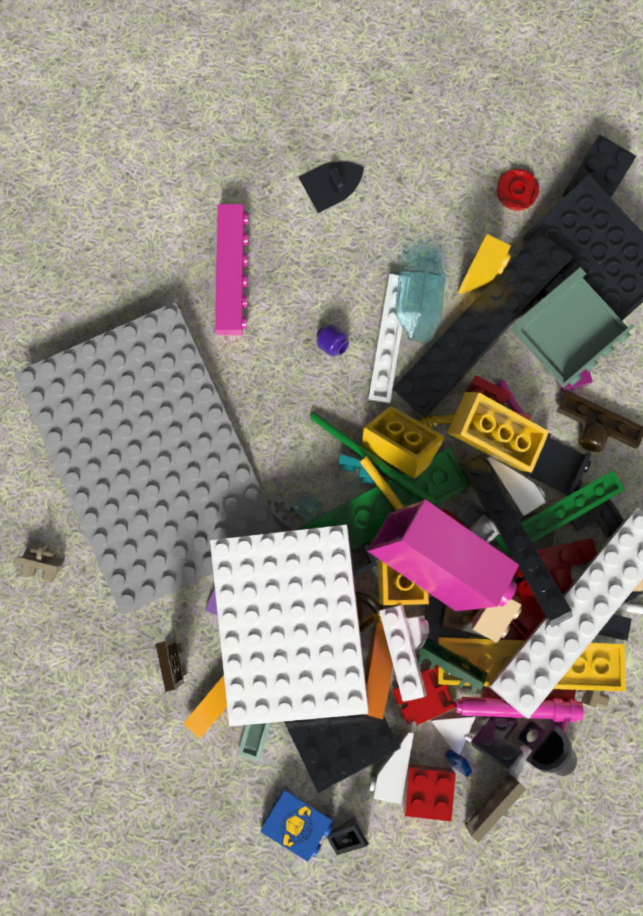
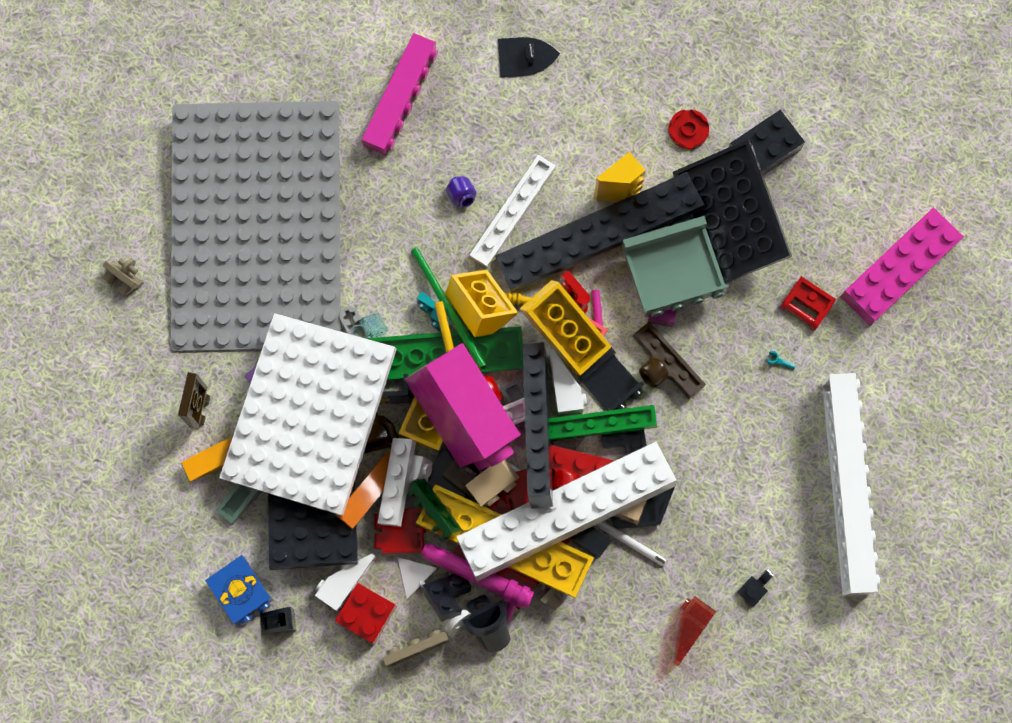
camera: 25 degrees right, 5 degrees down
(420, 298) = (554, 186): clear light blue wedge -> none
(458, 762) = (404, 602): clear blue tile -> none

